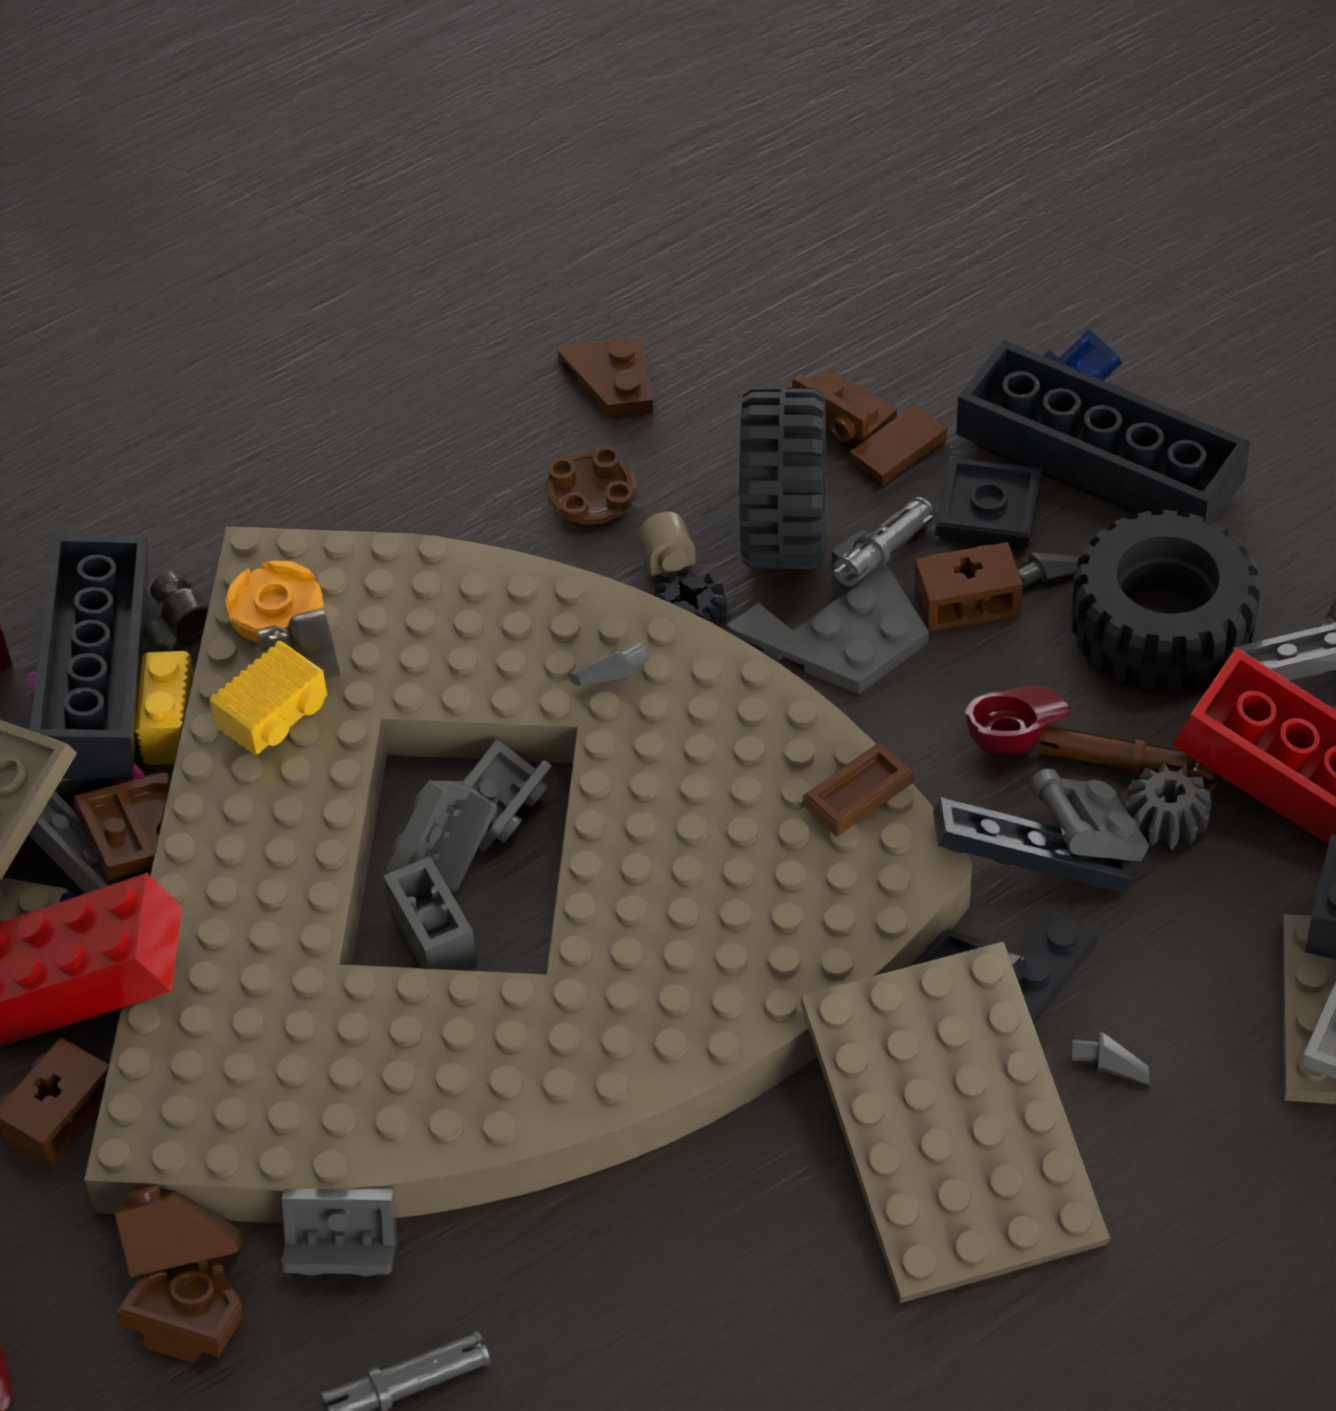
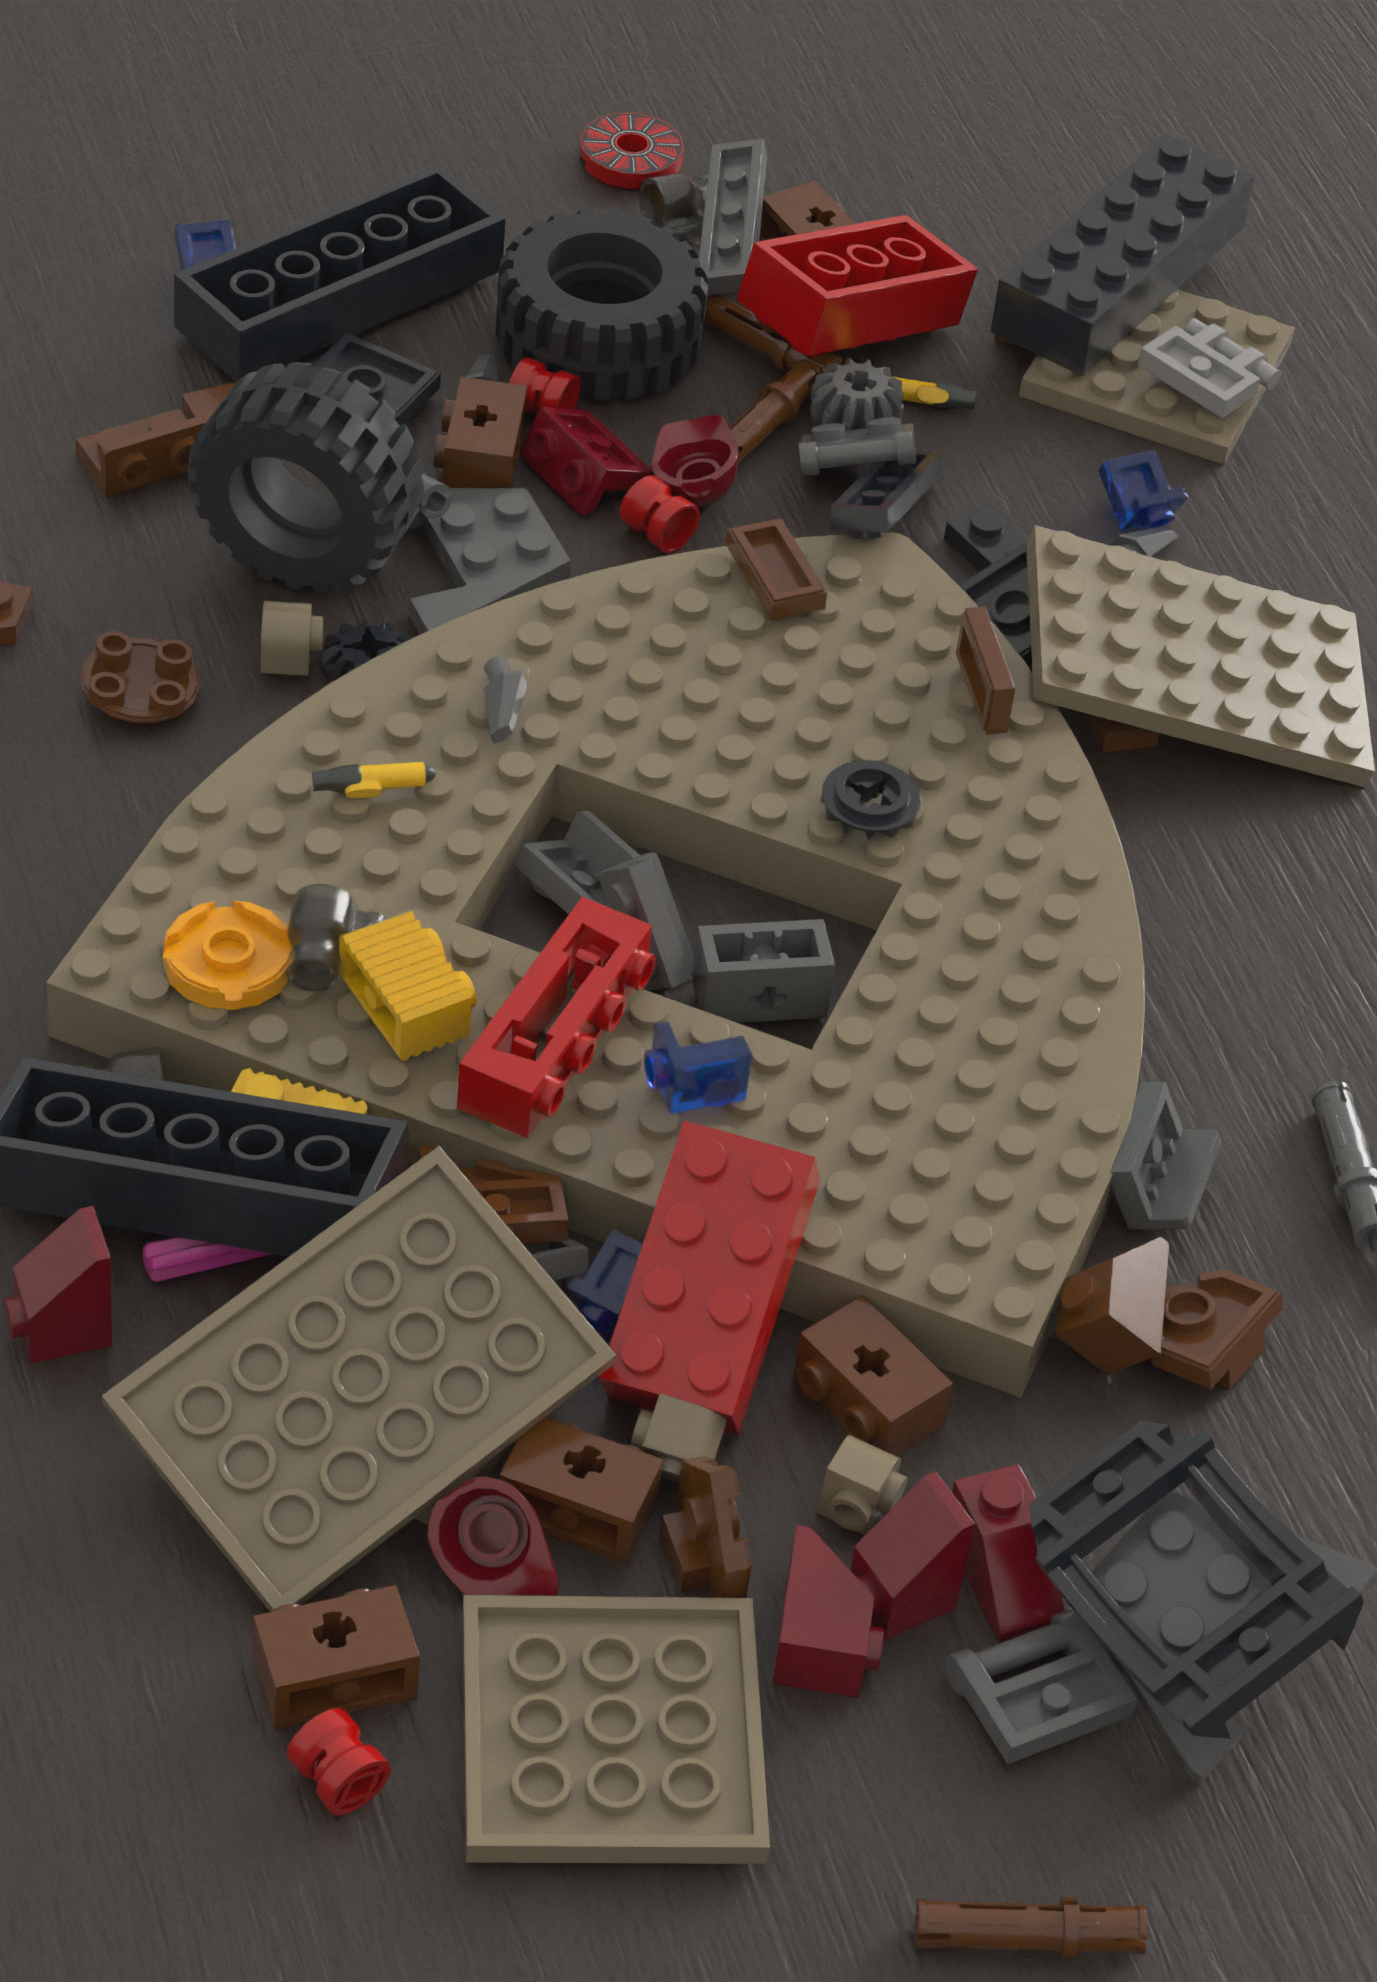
camera: 80 degrees left, 5 degrees down
(243, 882) = (697, 1073): none -> clear blue bracket
(272, 790) = (500, 1070): none -> red brick
(485, 620) = (369, 780): none -> yellow piece
(594, 904) = (863, 782): none -> black gear
(789, 950) = (985, 670): none -> reddish brown tile
(939, 722) = (664, 518): none -> red wheel
(993, 652) = (580, 457): none -> dark red bracket
(1047, 604) = (546, 387): none -> red wheel
(1176, 1035) = (1140, 491): none -> clear blue bracket
(1227, 854) = (937, 394): none -> piece

